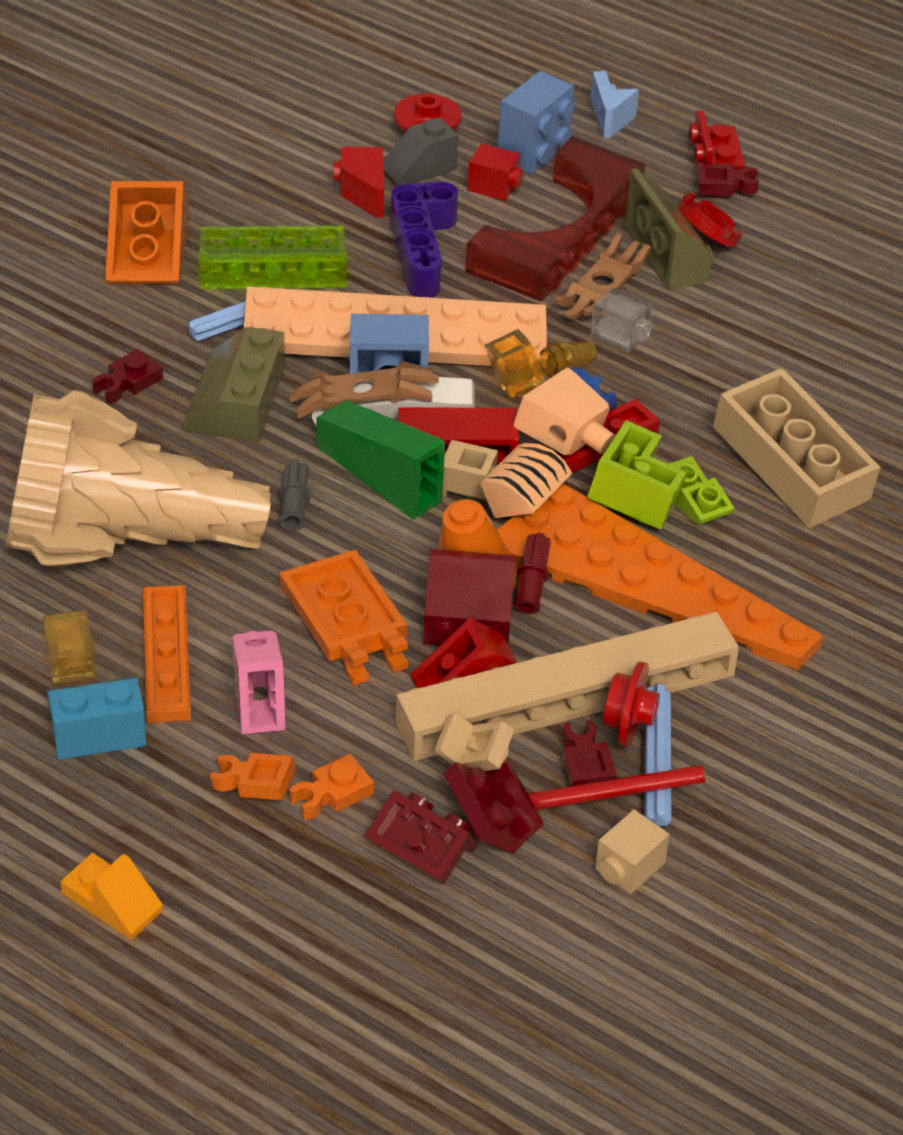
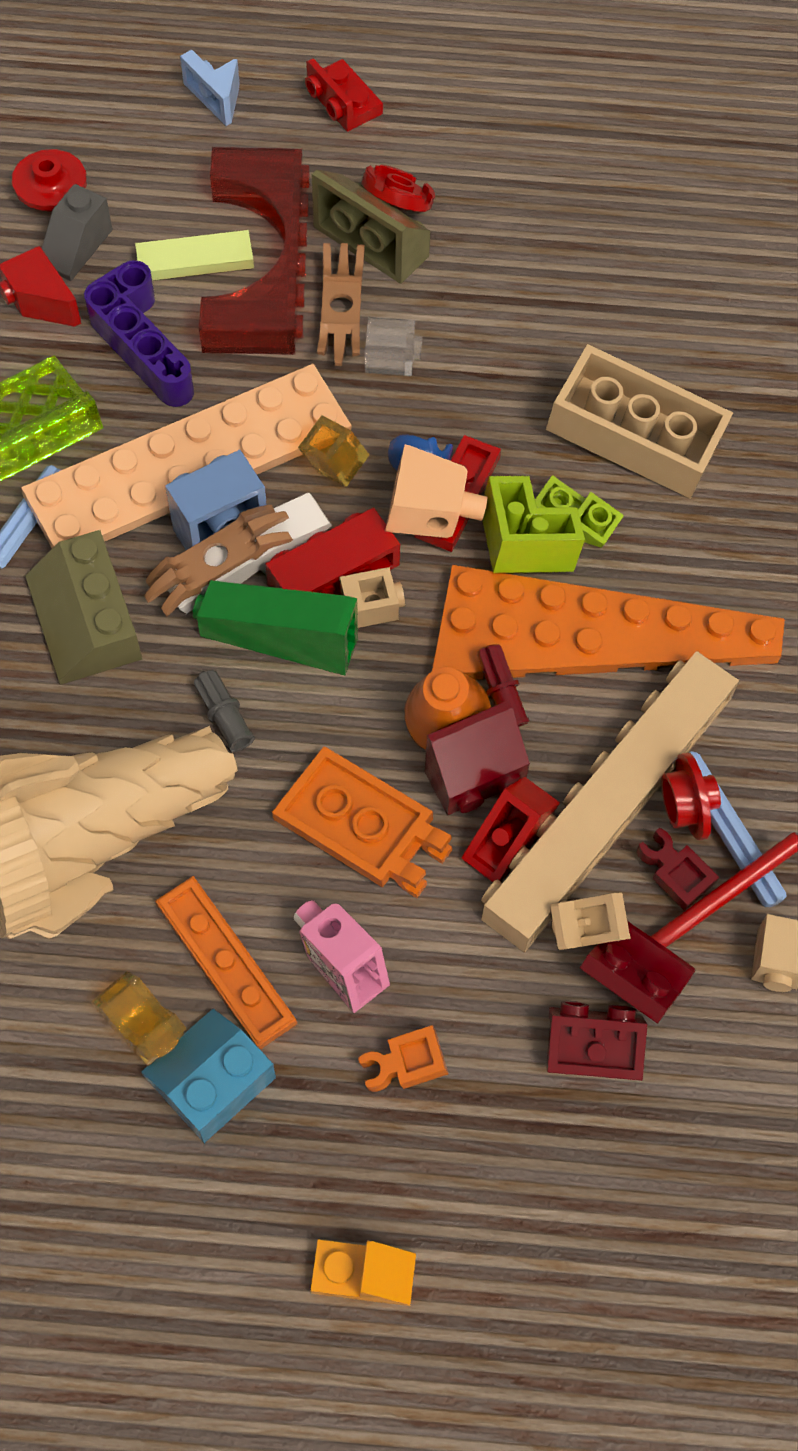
camera: 30 degrees left, 20 degrees up
(334, 784) = (480, 1023): orange plate -> none
(494, 172) = (159, 217): red brick -> none
(508, 207) = (197, 254): none -> yellowish green tile
(524, 480) = (432, 586): light nougat brick -> none
(537, 119) = (168, 144): medium blue brick -> none
(566, 354) = (369, 414): clear yellow cone -> none
(722, 180) = (373, 131): dark red plate -> none

